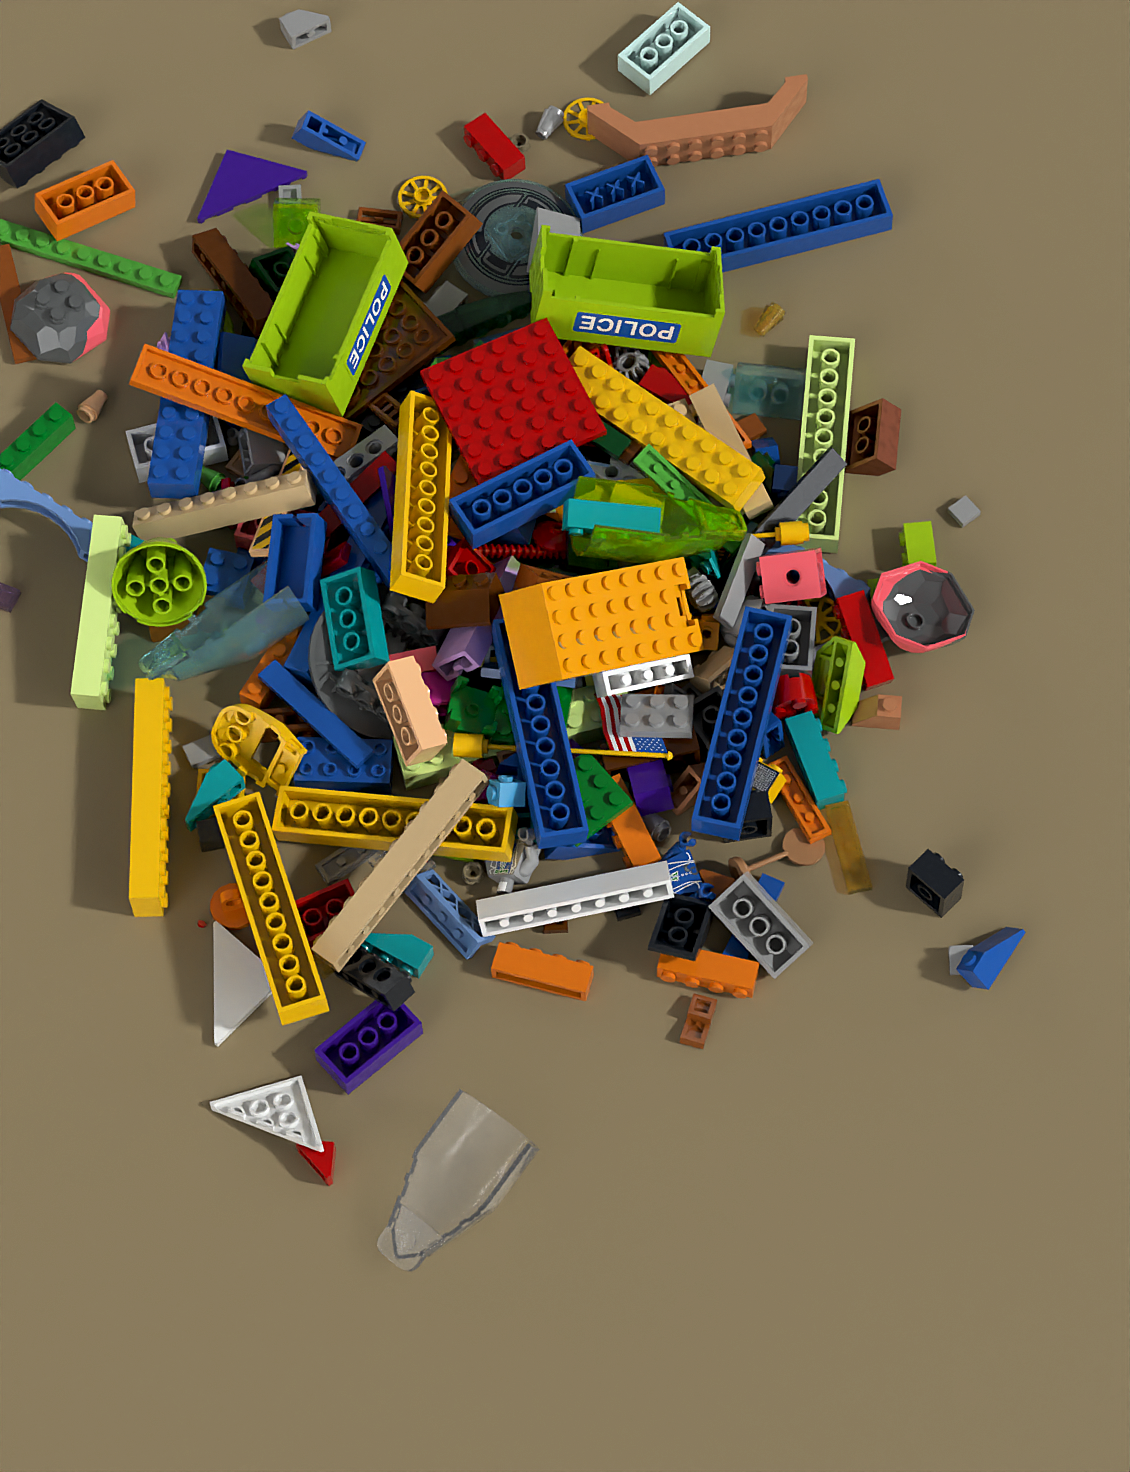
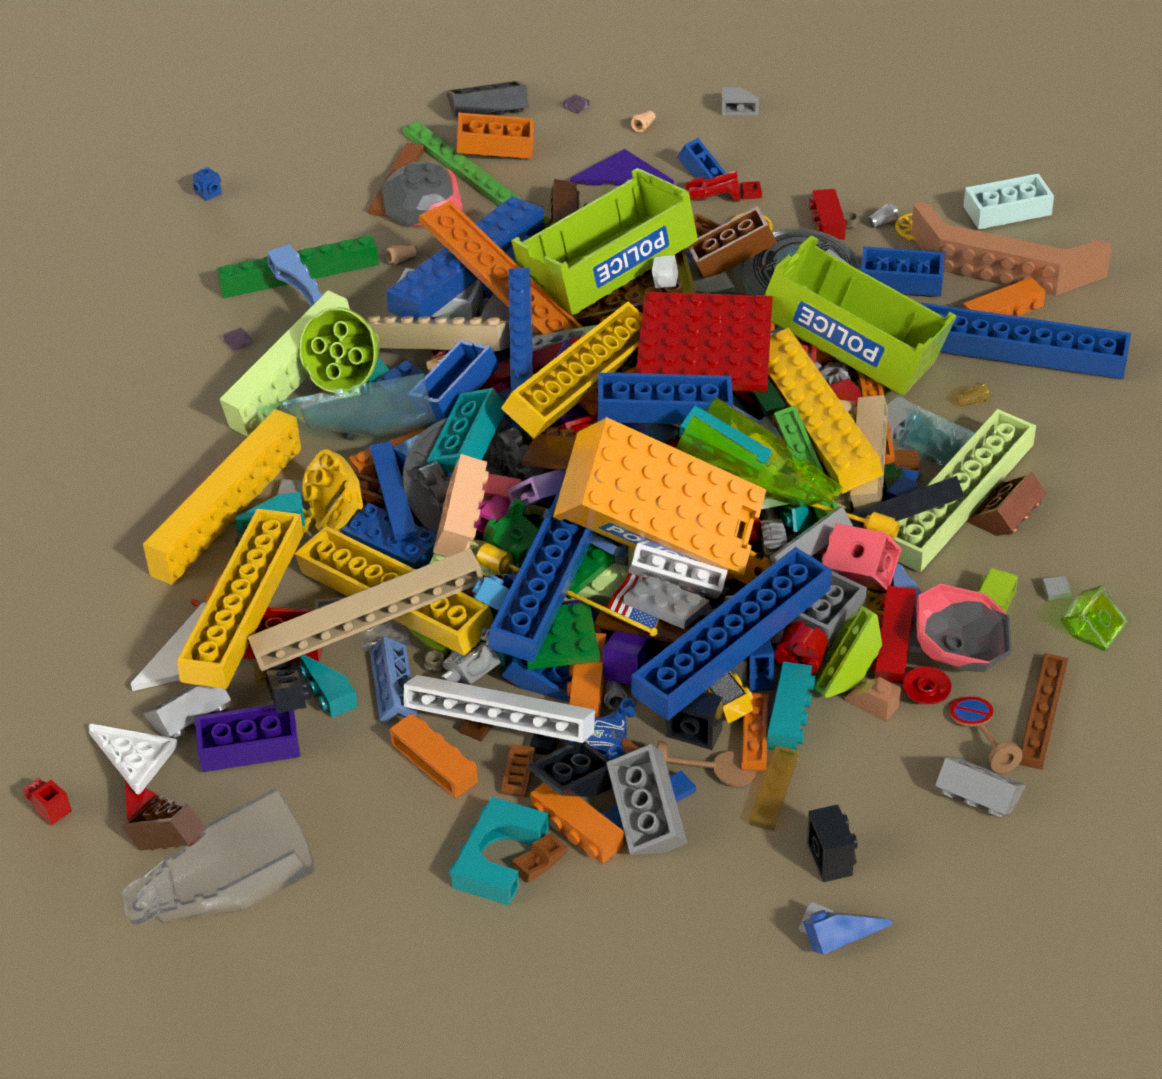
camera: 30 degrees right, 20 degrees down
(129, 105) = (576, 103): none -> clear purple tile
(220, 101) = (642, 121): none -> light nougat cone
(242, 1199) = (49, 800): none -> red brick
(283, 1048) = (180, 710): none -> light grey slope
(340, 168) = (724, 184): none -> red piece
(373, 1169) = (164, 825): none -> reddish brown wedge
(392, 146) = (751, 190): none -> red tile
(407, 323) = (665, 271): none -> white brick
(618, 928) = (518, 756): none -> dark orange slope
(655, 1065) = (497, 822): none -> teal arch
(735, 186) = (1011, 300): none -> orange brick
(916, 668) = (927, 685): none -> red dish
(969, 683) = (977, 712): none -> piece
(1016, 531) = (1094, 618): none -> clear neon green slope
(1017, 757) = (979, 786): none -> light grey slope
(1023, 651) = (1043, 711): none -> dark orange tile

